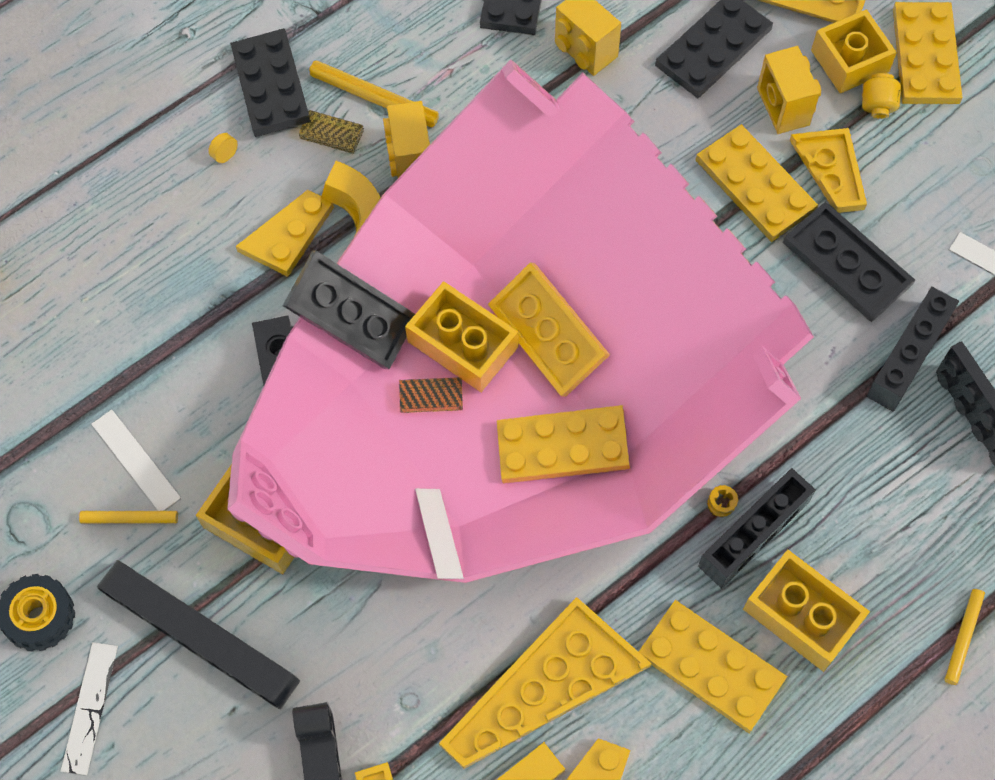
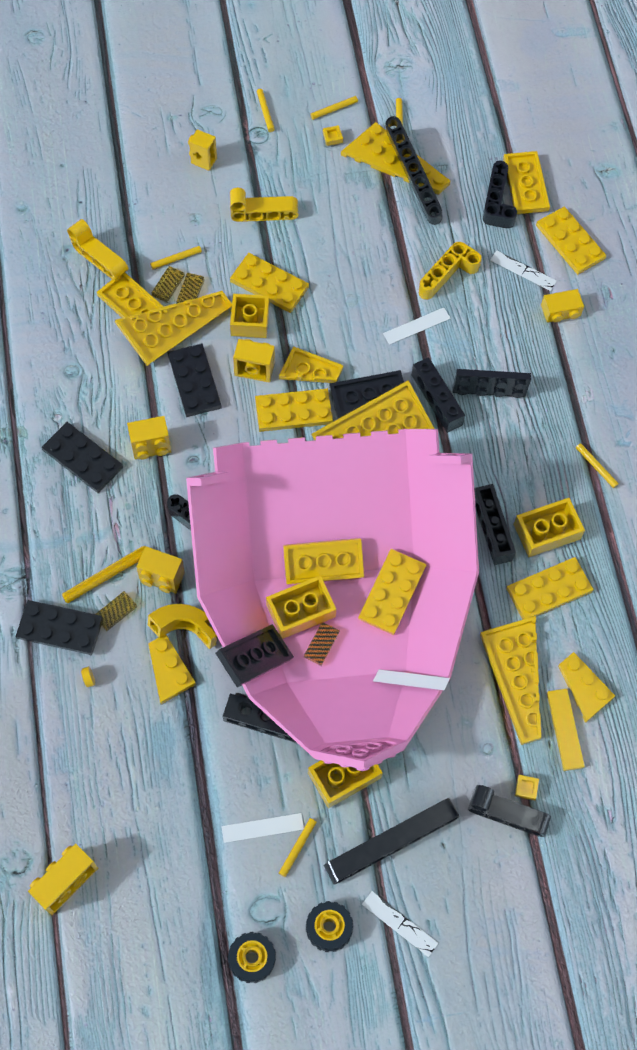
camera: 65 degrees left, 0 degrees up
(835, 301) = (390, 411): none -> yellow wing
(881, 95) = (283, 319): yellow head -> none

